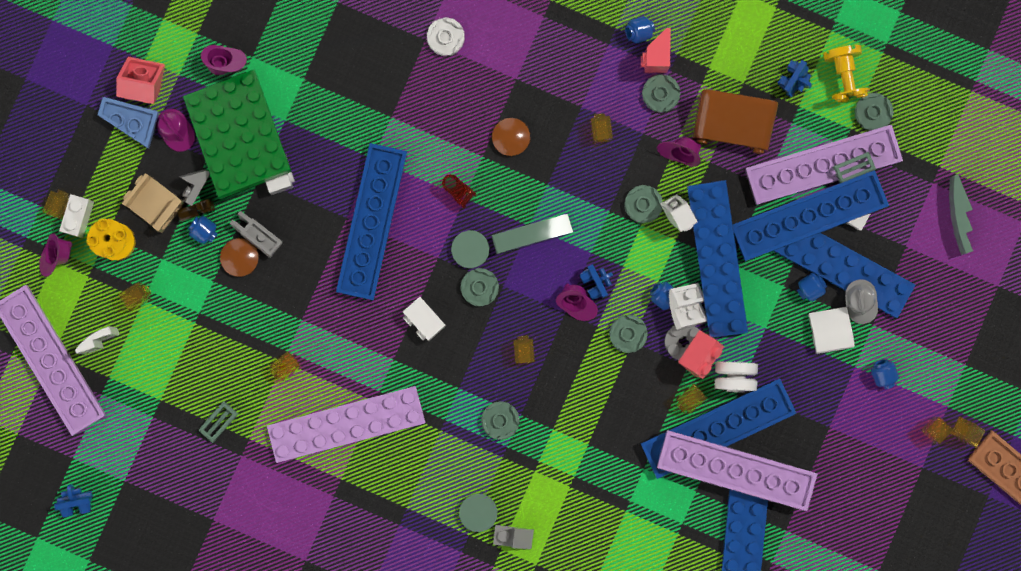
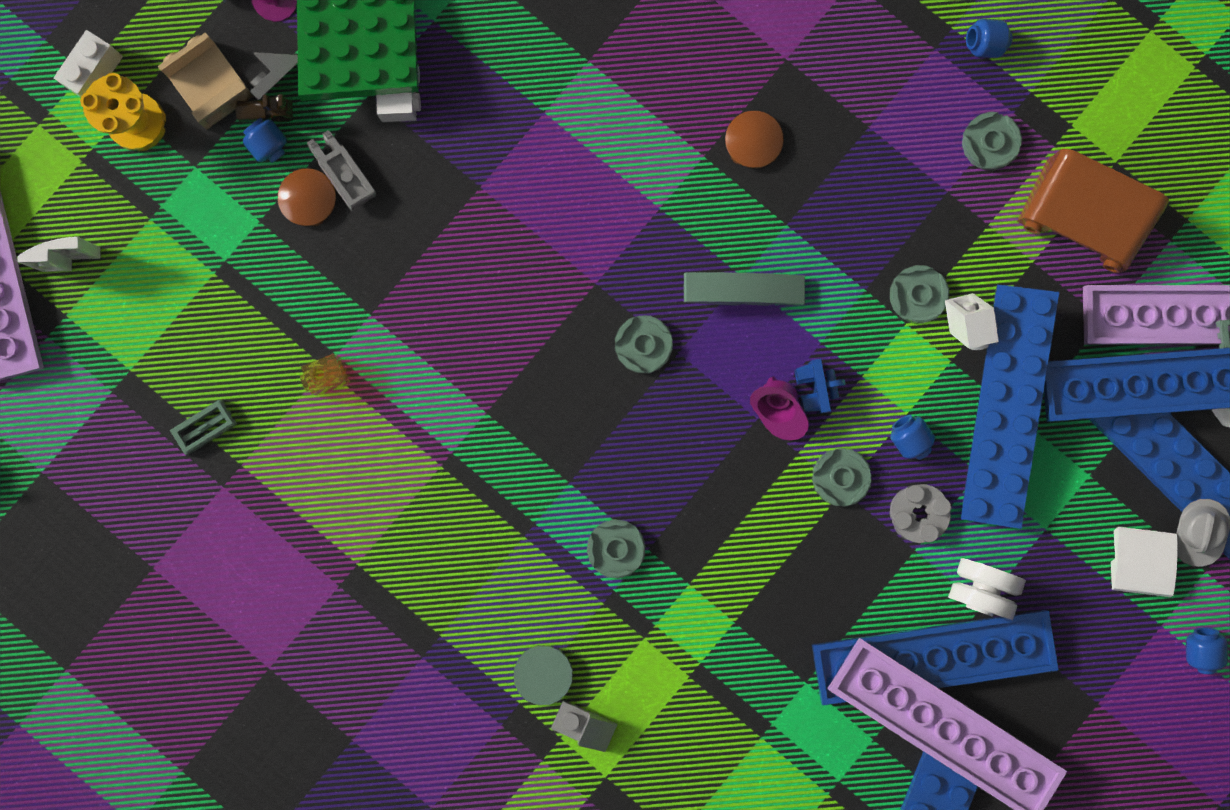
camera: 15 degrees right, 0 degrees up
(54, 254) = (43, 112): magenta piece -> none
(56, 204) = (62, 39): clear yellow brick -> none
(135, 296) = (138, 208): clear yellow brick -> none
(346, 424) = (388, 486): lavender plate -> none
(371, 221) = (514, 202): blue plate -> none
(424, 319) = (547, 365): white brick -> none
(459, 191) = (655, 194): clear red piece -> none
(470, 249) = (646, 284): sand green tile -> none
(524, 350) = (681, 455): clear yellow brick -> none
(601, 128) = (890, 165): clear yellow brick -> none
(657, 54) = (1008, 80): coral slope -> none
(681, 150) = (1000, 232): magenta piece -> none
(687, 306) = (941, 462): white slope -> none
(690, 399) = (906, 601): clear yellow brick -> none
(701, 354) = (945, 542): coral slope -> none
(799, 79) = (1205, 167): blue hips -> none
(812, 287) = (1134, 489): blue head -> none

